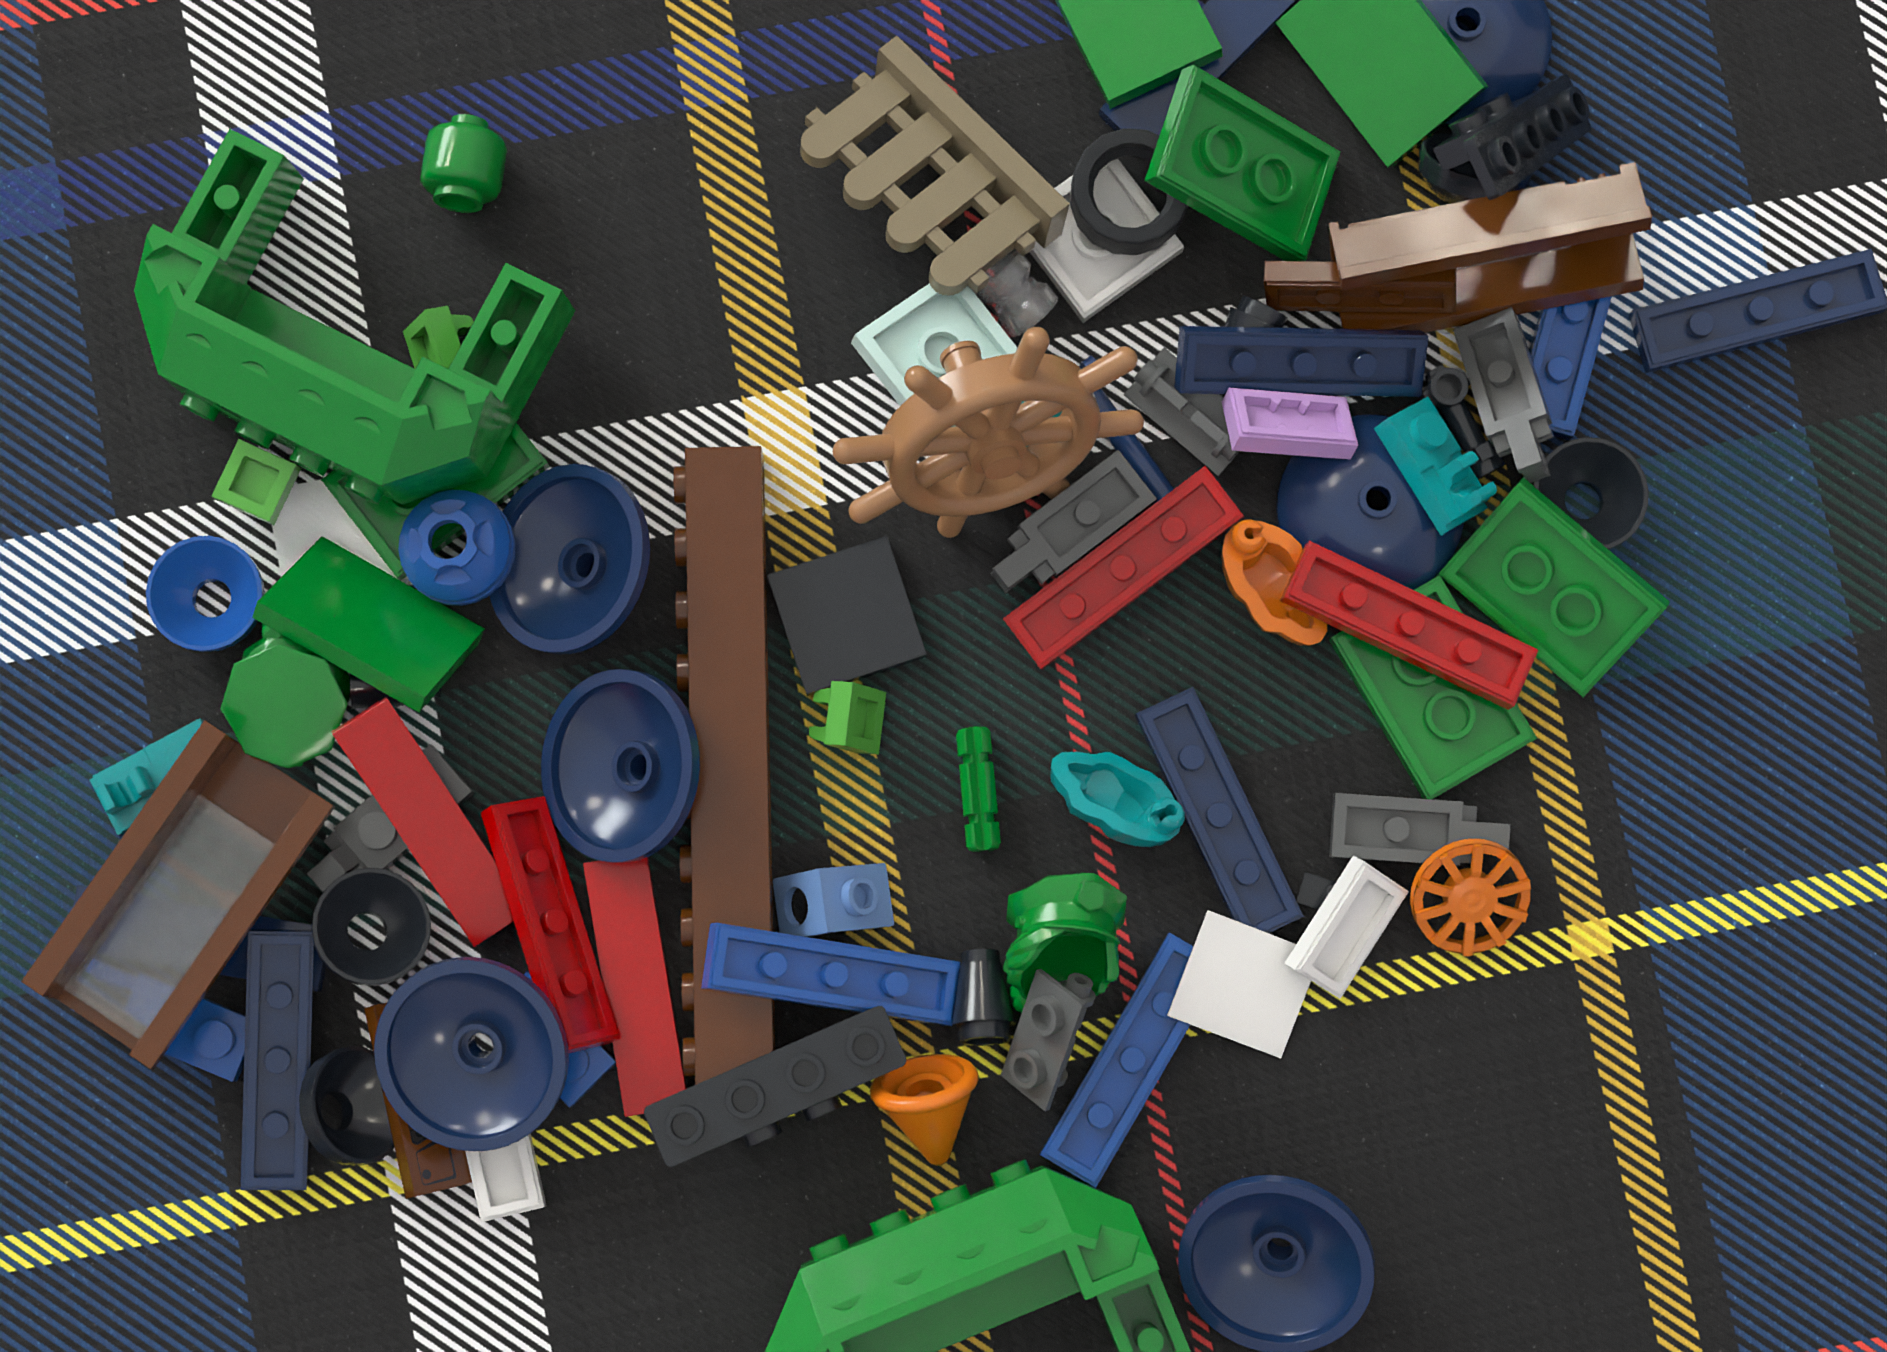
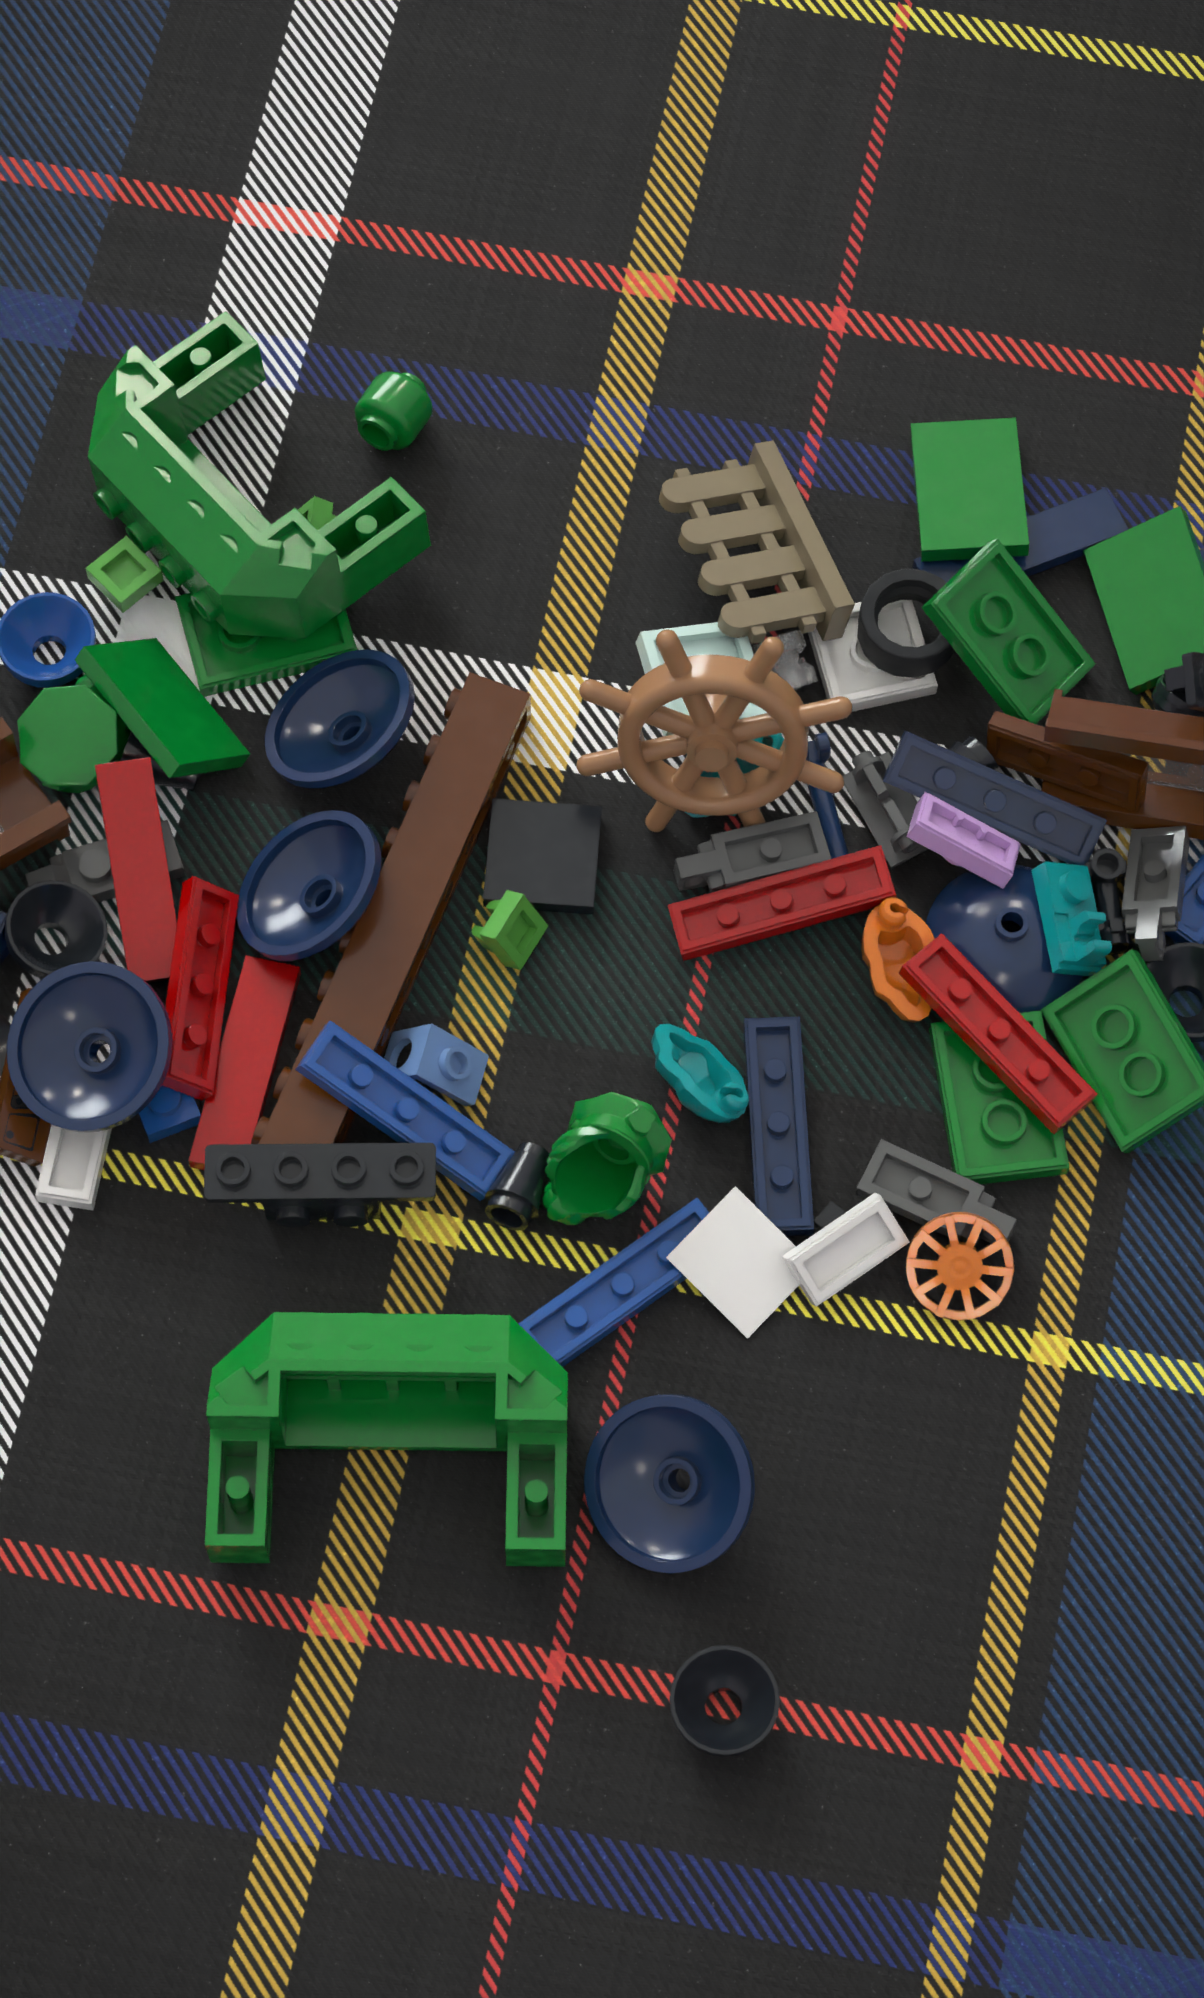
camera: 25 degrees right, 15 degrees down
(481, 564) = (262, 699): blue piece -> none
(928, 1101) = (437, 1249): orange hat -> none
(978, 789) = (589, 1027): green axle -> none
(1047, 1035) = (548, 1242): dark grey hinge -> none

